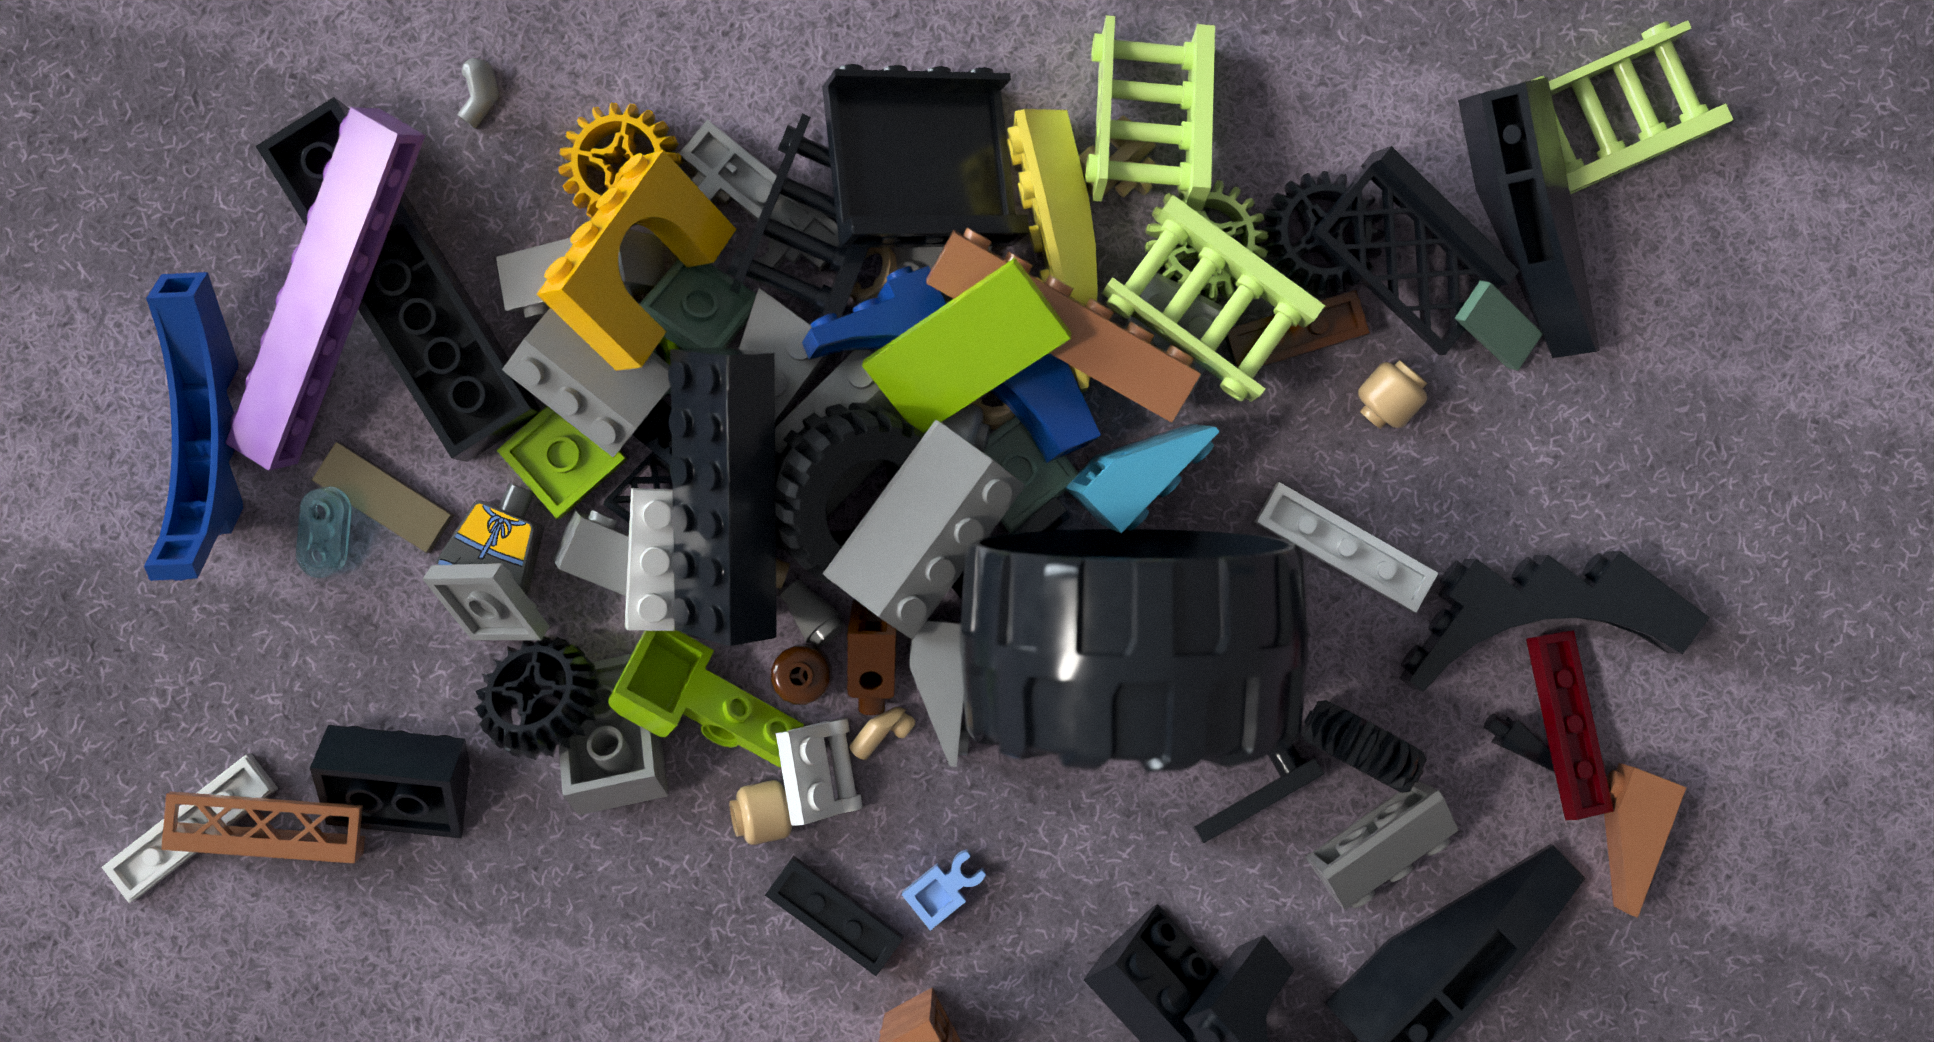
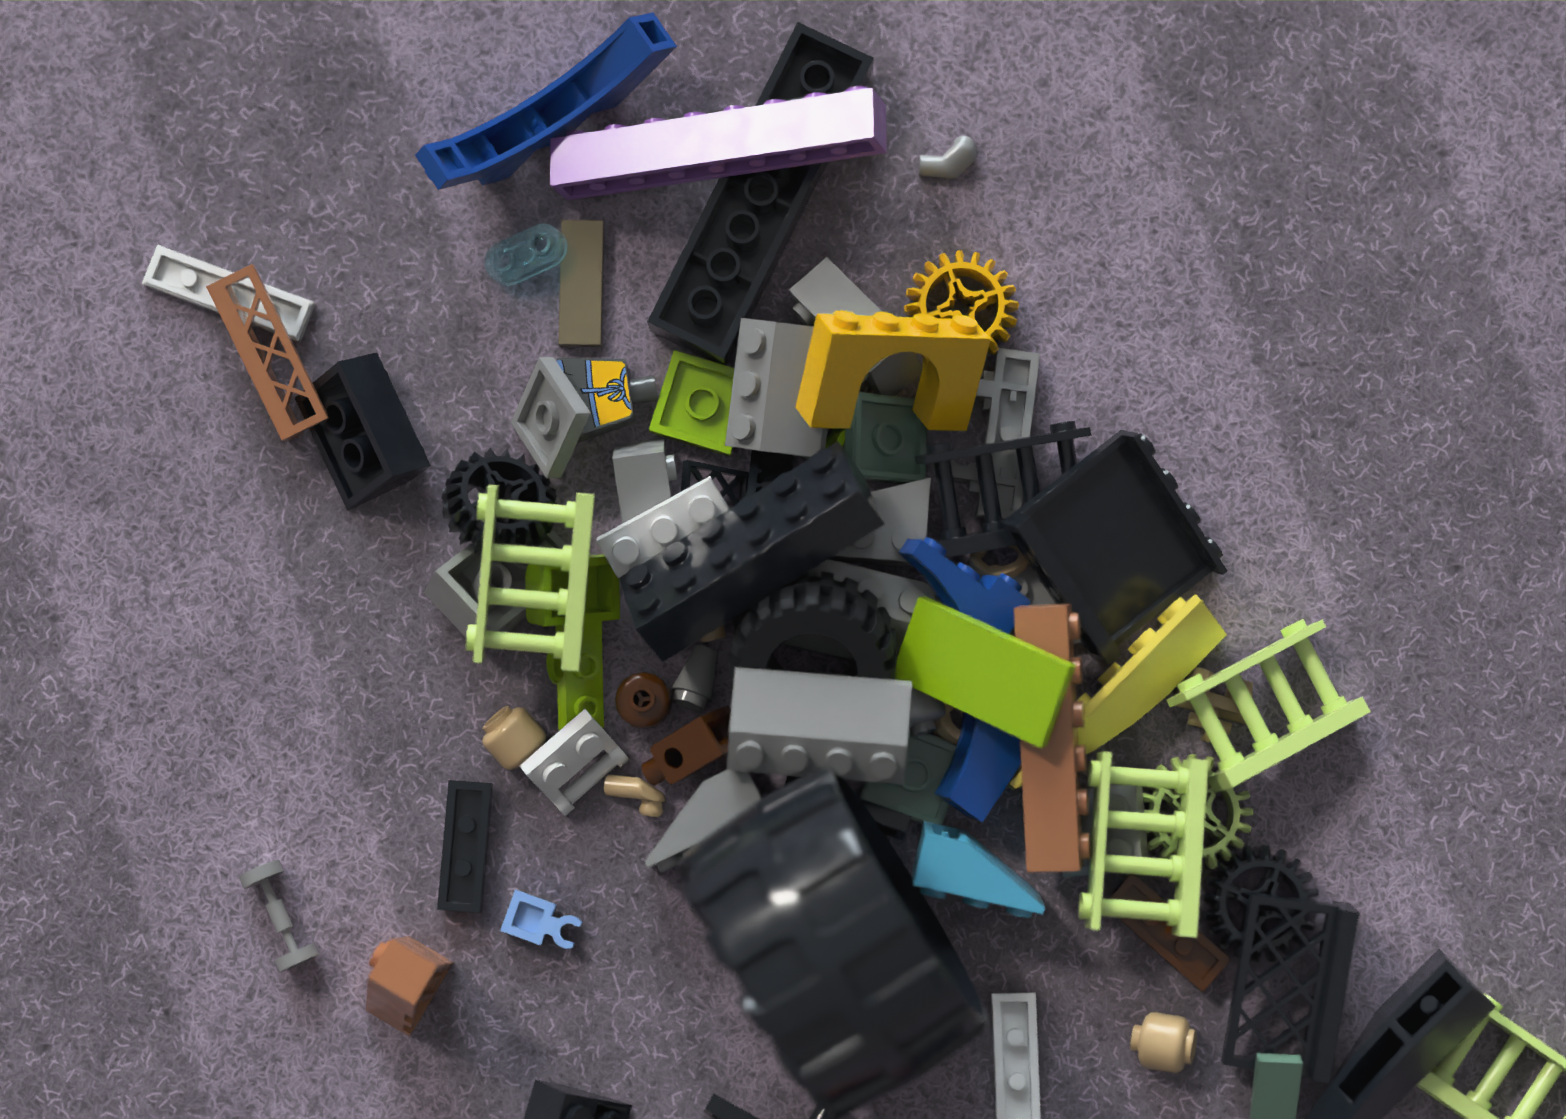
camera: 60 degrees right, 5 degrees down
(627, 664) = (570, 559): none -> yellowish green fence

